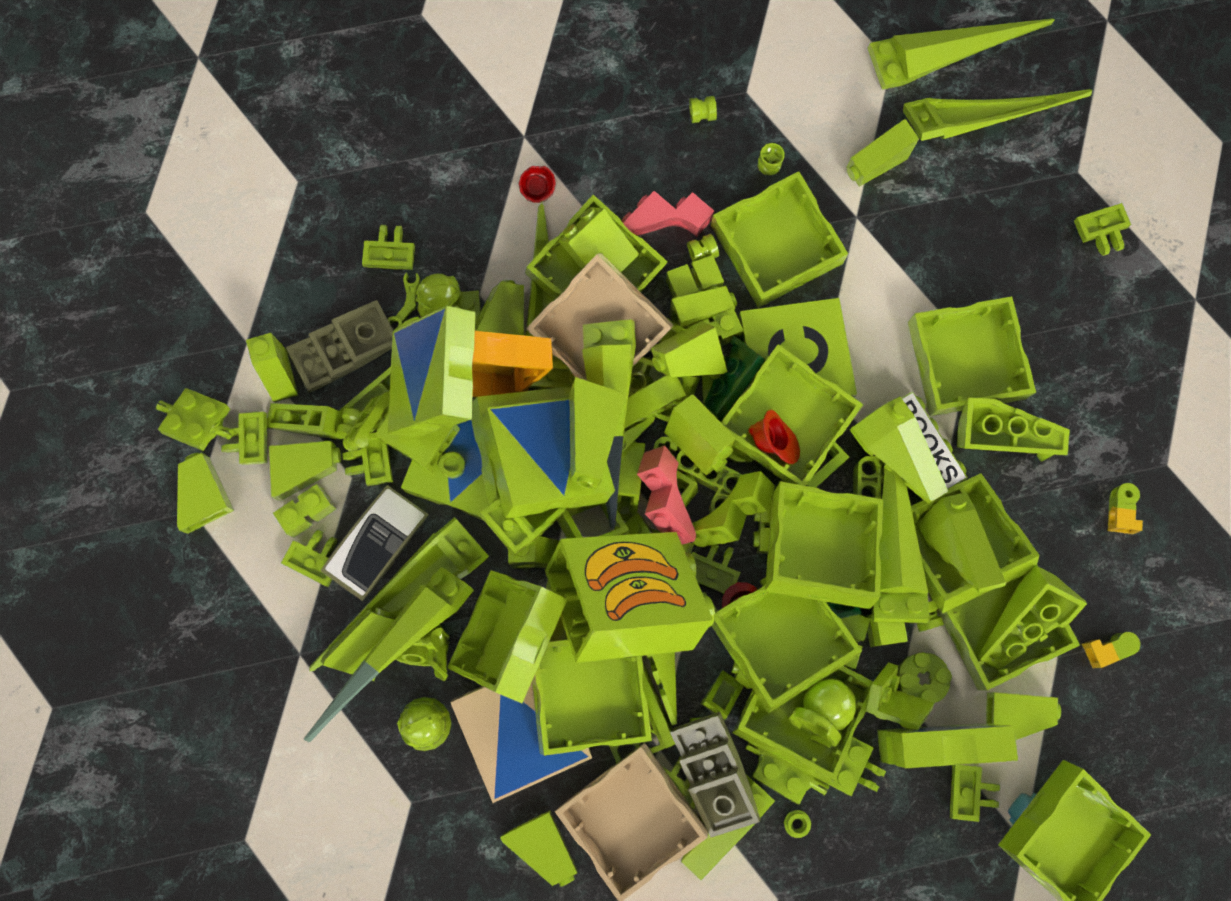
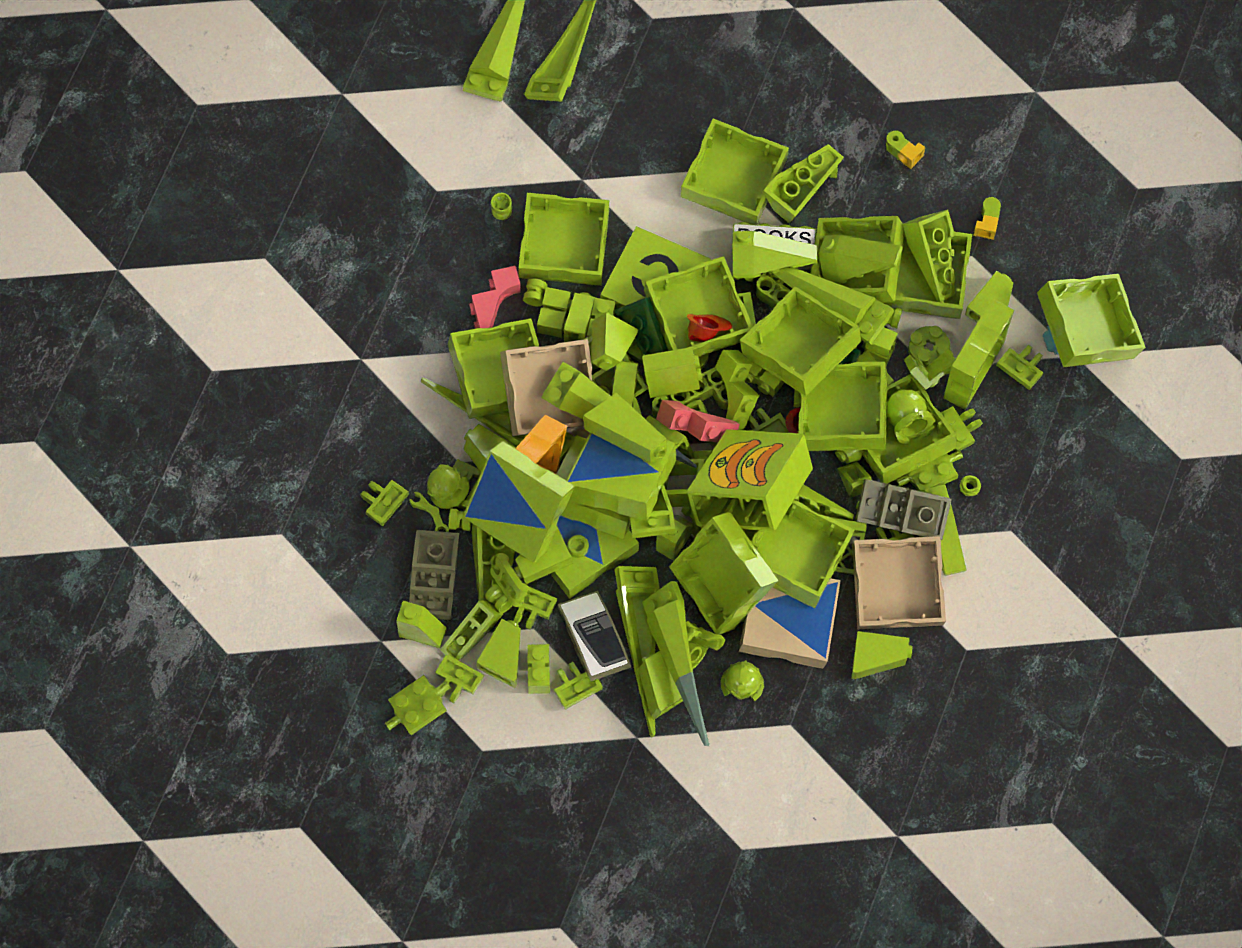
camera: 55 degrees left, 10 degrees down
(199, 494) = (475, 732): lime slope -> none
(537, 184) = (408, 369): red hair -> none
(596, 235) = (483, 350): lime brick -> none
(702, 110) = (432, 225): lime wheel -> none
(882, 153) = (552, 132): lime slope -> none
(1101, 223) = (700, 29): lime hinge -> none

